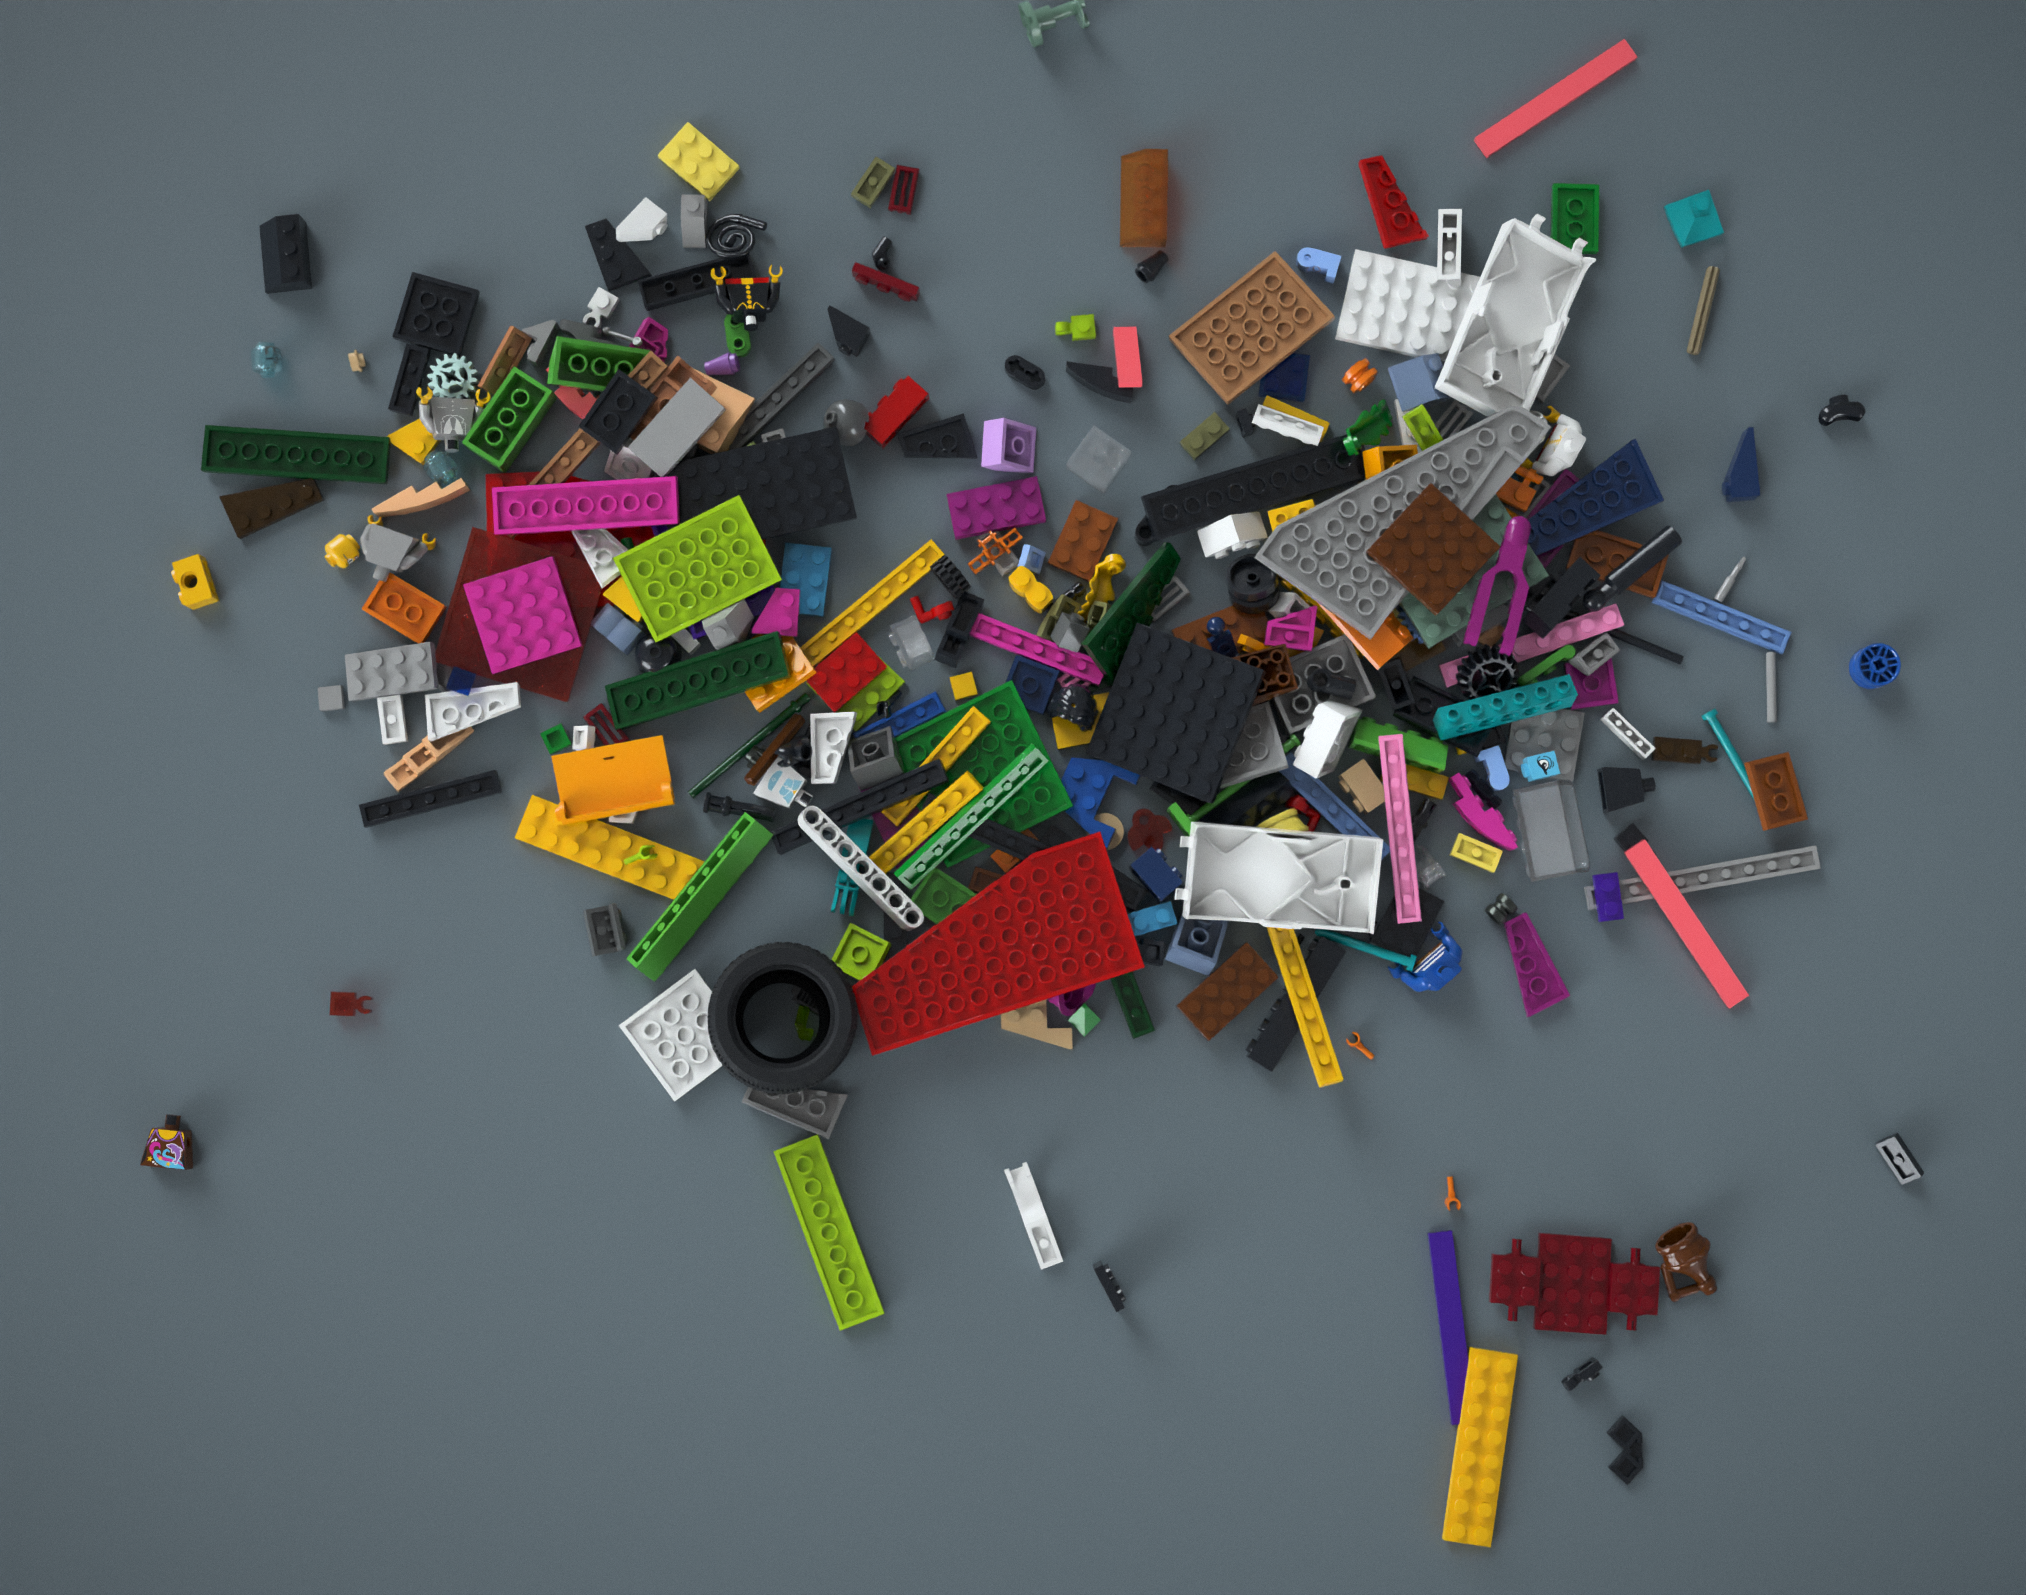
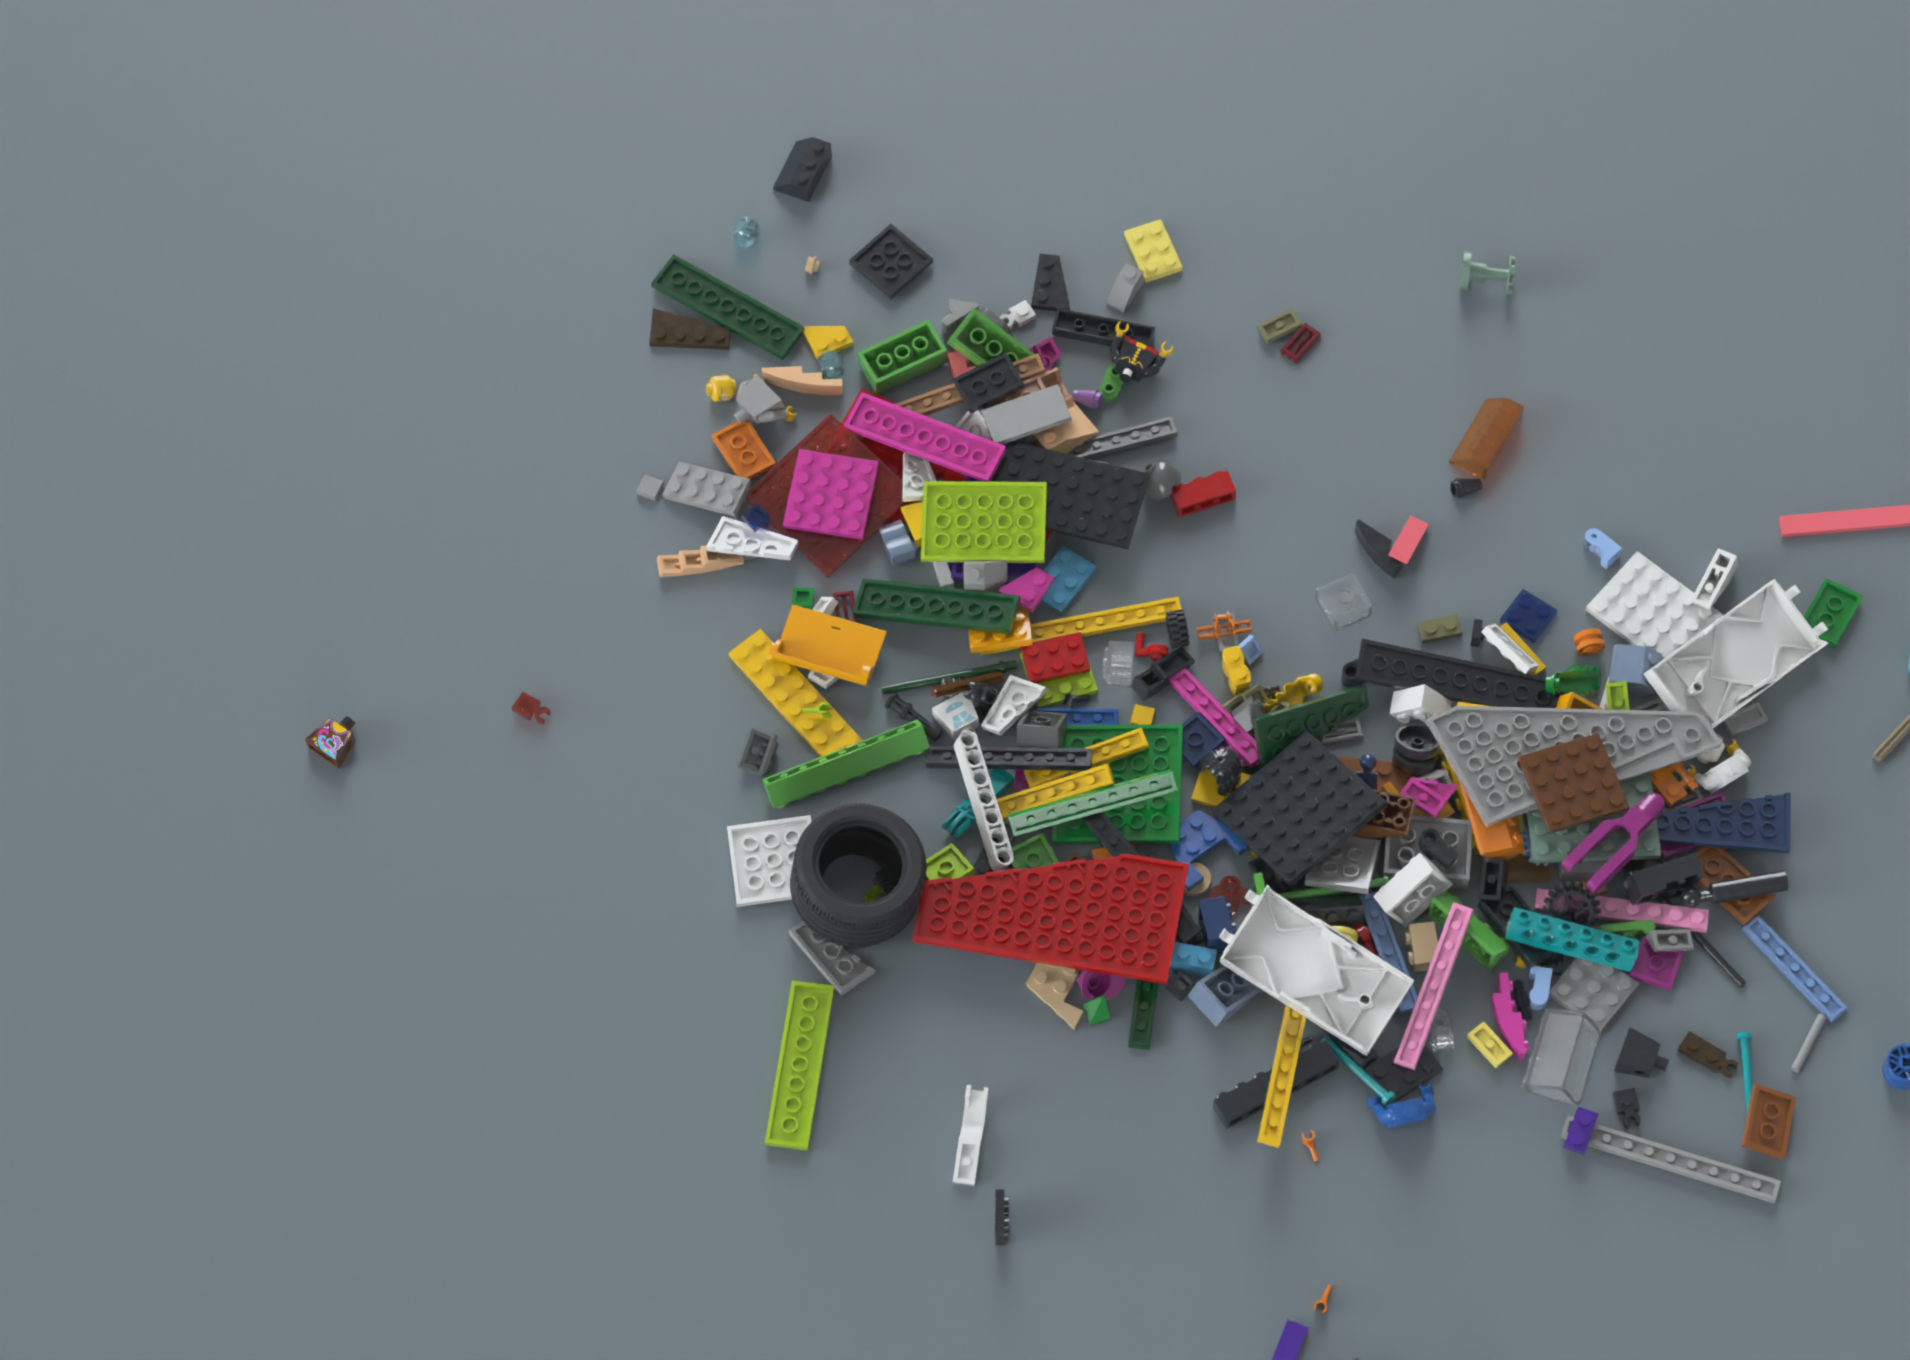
camera: 30 degrees right, 20 degrees down
(204, 591) = (598, 367): yellow brick -> none
(392, 719) = (686, 524): white plate -> none
(409, 379) = (843, 296): black plate -> none
(430, 798) = (681, 593): black plate -> none
(449, 417) = (857, 332): light grey torso -> none
(457, 370) = (876, 312): light aqua gear -> none
(506, 357) = (932, 311): nougat plate -> none
(636, 341) = (1031, 347): light grey hinge -> none
(642, 223) = (1084, 270): white slope -> none
(655, 656) = (916, 572): black cylinder -> none
(731, 239) = (1141, 318): black piece -> none
(848, 332) = (1199, 421): black slope -> none
(879, 254) = (1255, 379): black arm -> none
(885, 282) = (1248, 399): dark red plate -> none
(939, 440) = (1226, 530): black wing -> none
(996, 508) = (1243, 600): magenta plate -> none
(1008, 446) = (1278, 560): lavender slope -> none
(1027, 367) = (1318, 517): black beam -> none
(1081, 327) = (1383, 504): lime plate -> none
(1082, 541) = (1298, 656): dark orange plate -> none
(1227, 991) = (1224, 1045): reddish brown brick -> none
(1251, 327) = (1520, 566): medium nougat plate -> none
(1389, 205) = (1681, 539): red wing -> none
(1420, 819) = (1455, 997): black pin -> none
(1425, 782) = (1474, 969): yellow plate -> none
(1501, 909) = (1486, 1097): pearl dark grey wheel -> none
(1534, 969) = (1489, 1162): magenta wing -> none
(1540, 766) = (1577, 998): medium azure brick -> none
(1627, 734) = (1666, 1017): white piece -> none
(1686, 923) = (1636, 1186): coral tile -> none
(1728, 583) = (1815, 945): light grey piece -> none
(1742, 475) = (1868, 866): dark blue slope -> none

